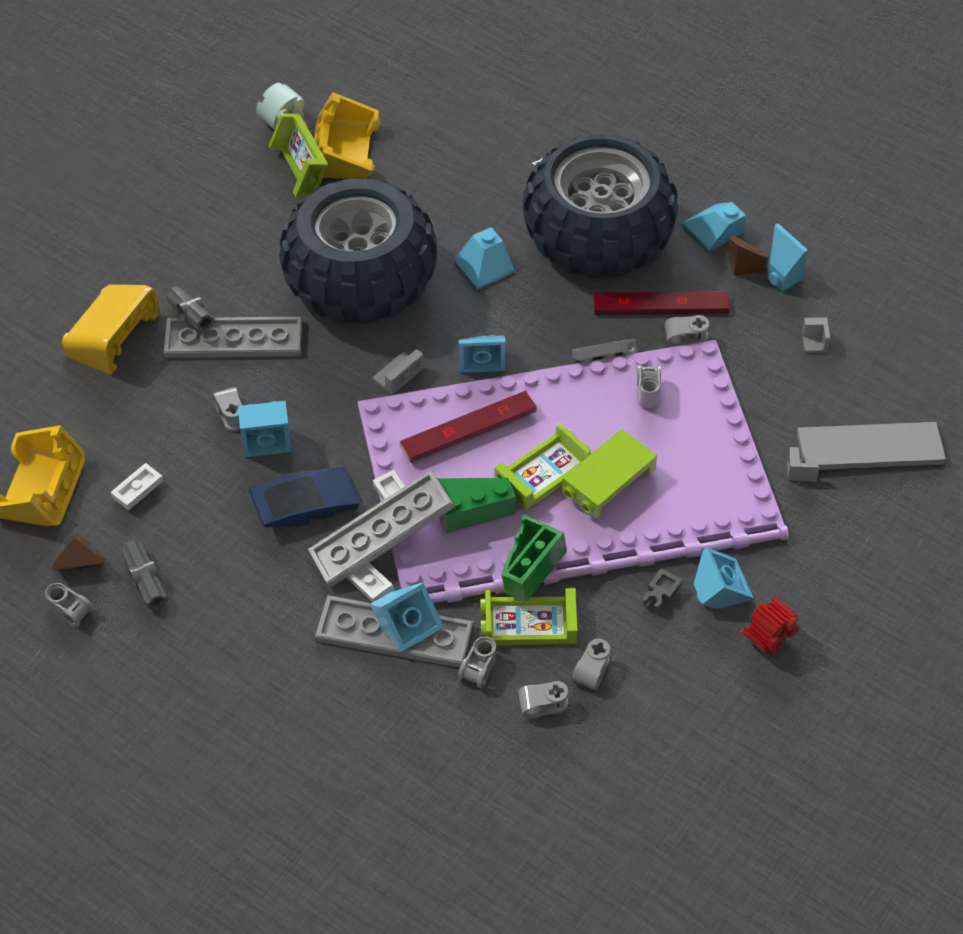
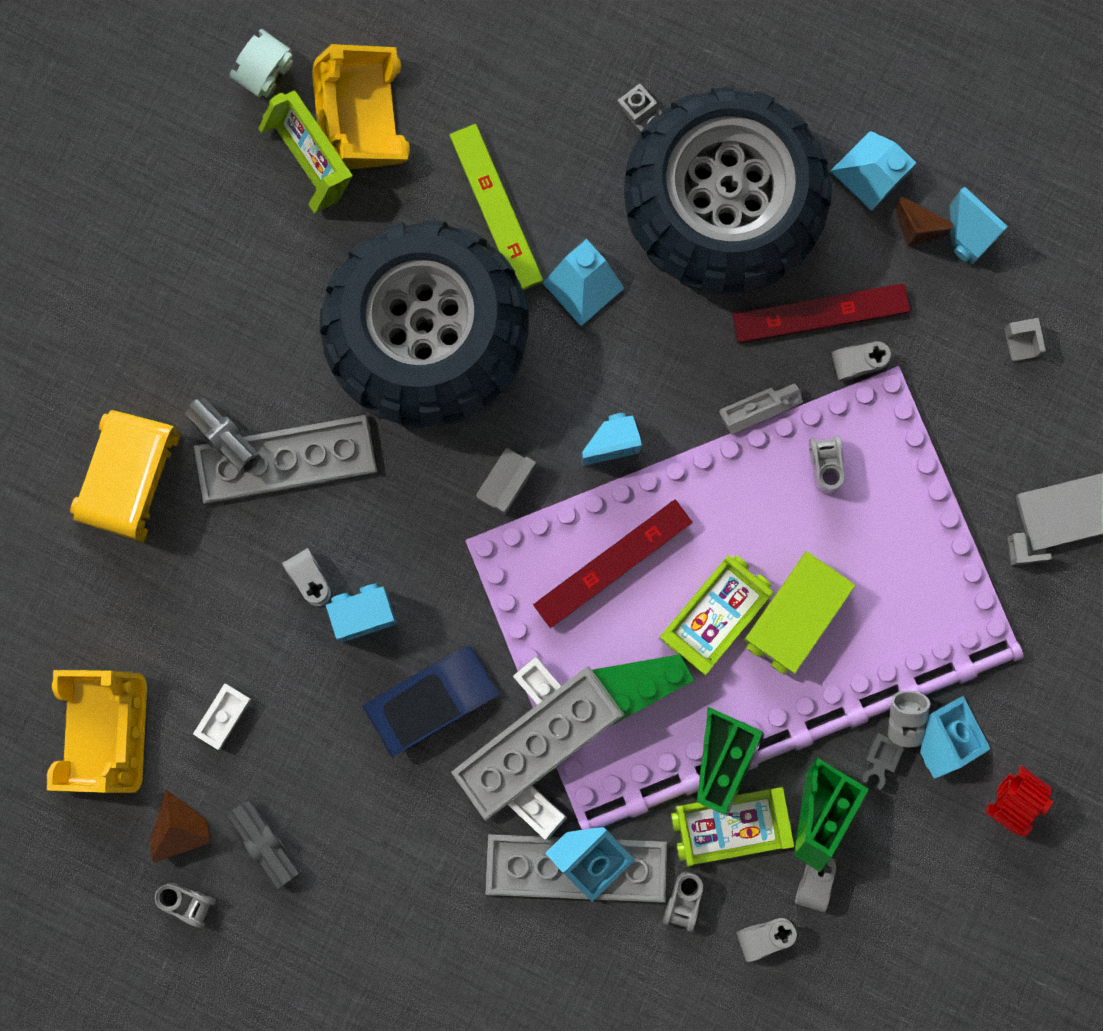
camera: 10 degrees left, 30 degrees up
(424, 193) = (495, 204): none -> lime tile
(609, 609) = (826, 812): none -> green wedge
(687, 548) = (908, 718): none -> light grey wheel

